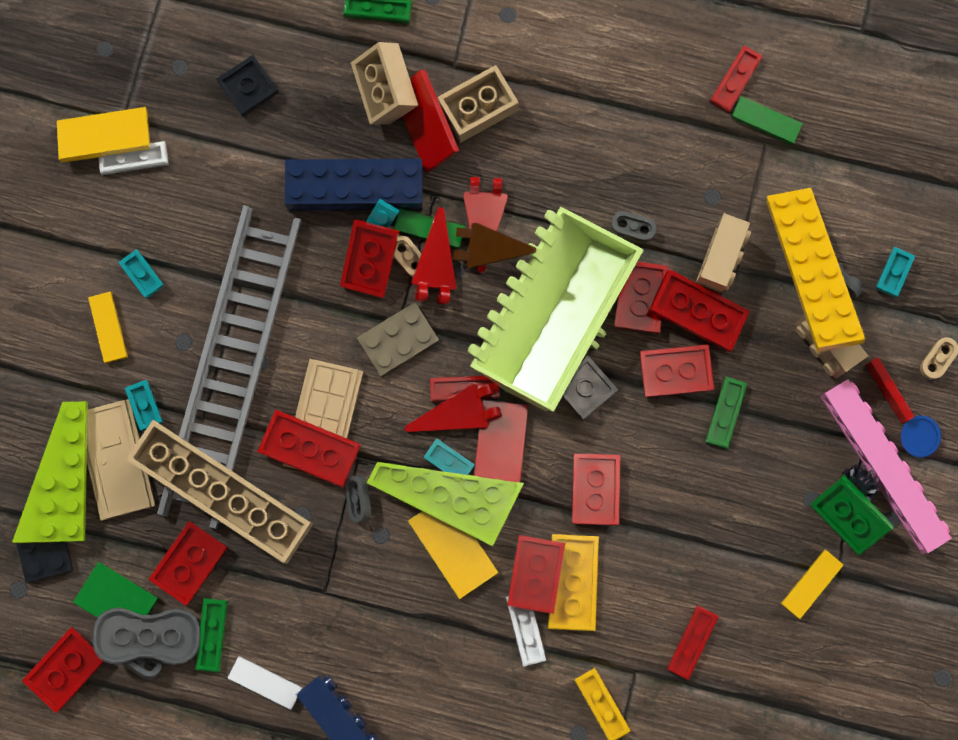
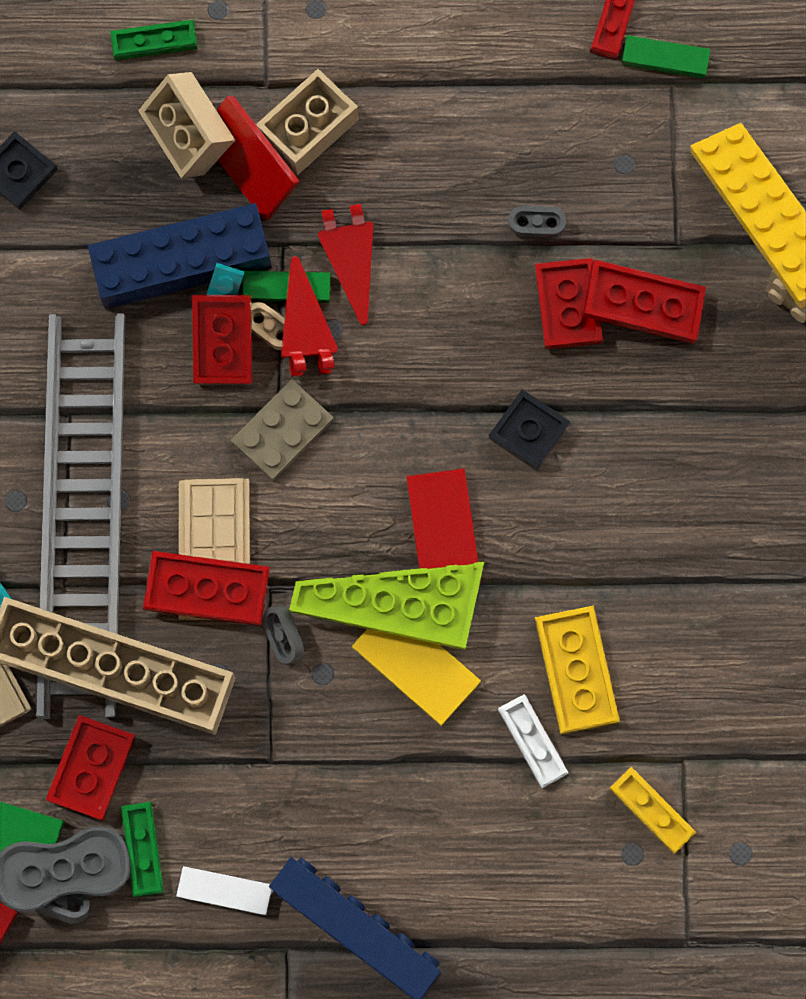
camera: 10 degrees left, 5 degrees down
(446, 387) = (380, 468): red tile -> none
(447, 459) = (380, 558): teal plate -> none
(460, 411) = (380, 498): red flag -> none
(489, 246) = (366, 286): reddish brown flag -> none
(536, 574) = (528, 669): red plate -> none
(554, 309) = (465, 341): yellowish green piece -> none
(596, 489) = (575, 549): plate -> none
(676, 371) = (636, 381): red plate -> none
(692, 642) = (743, 705): red tile -> none
(724, 254) = (656, 225): tan brick -> none
(726, 412) = (710, 417): green tile -> none

